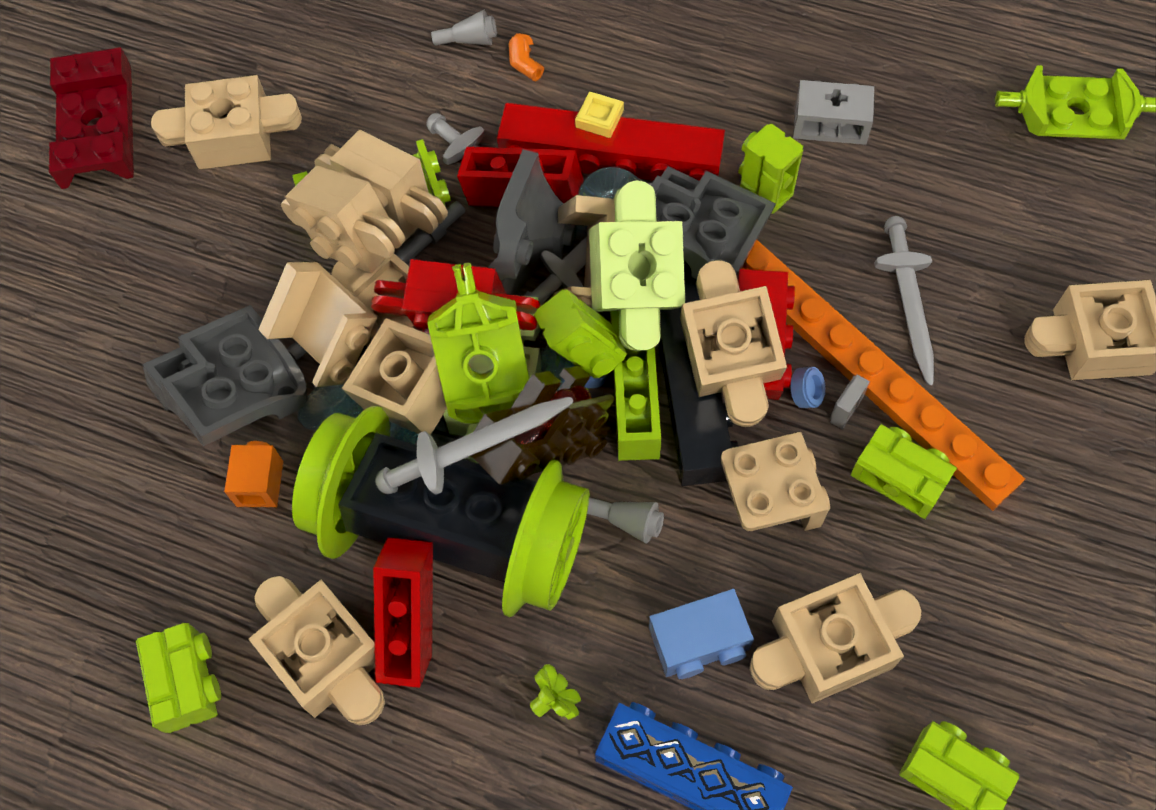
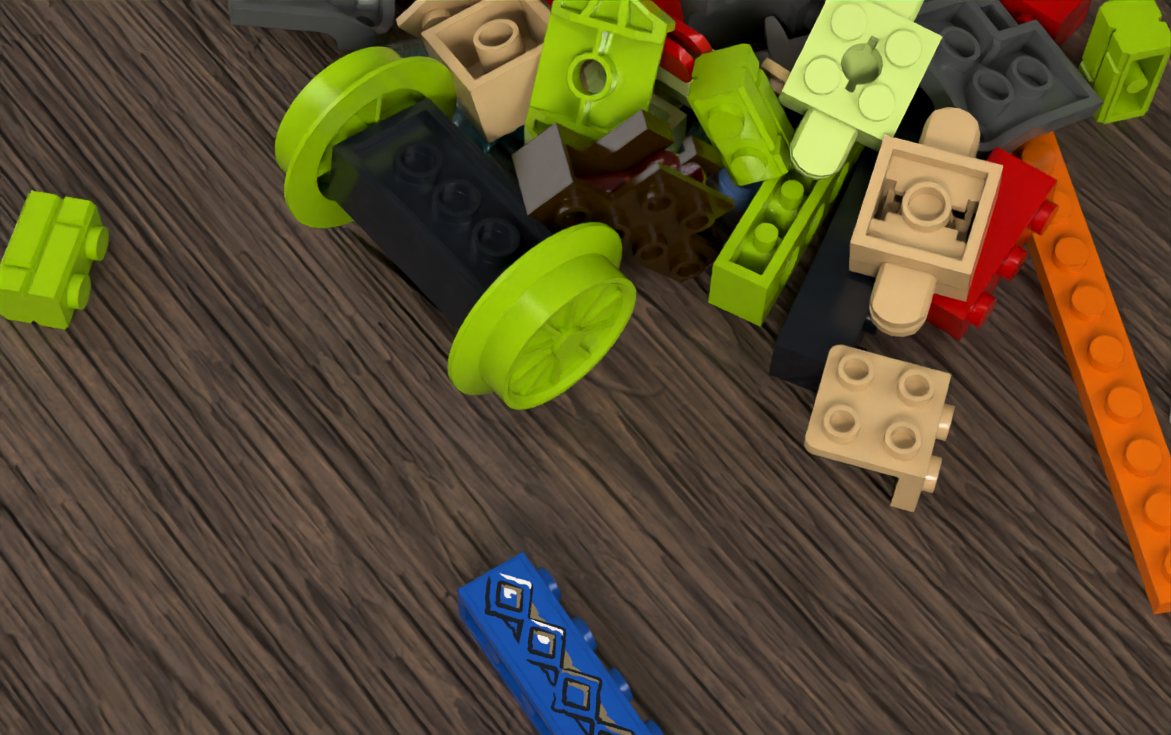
camera: 25 degrees right, 5 degrees down
(254, 475) = (265, 90): orange brick -> none
(317, 650) = (219, 312): tan brick -> none
(403, 611) = (336, 312): red brick -> none
(432, 460) = (469, 145): light grey sword -> none
(554, 694) = (457, 510): lime plant -> none
(636, 518) = (688, 378): light grey cone -> none
(701, 634) = (674, 540): medium blue brick -> none
(807, 387) = (1002, 339): medium blue tile -> none
(835, 638) = (849, 609): tan brick -> none
(849, 401) = (1045, 382): light grey tile -> none
(903, 470) = (1062, 497): lime brick -> none

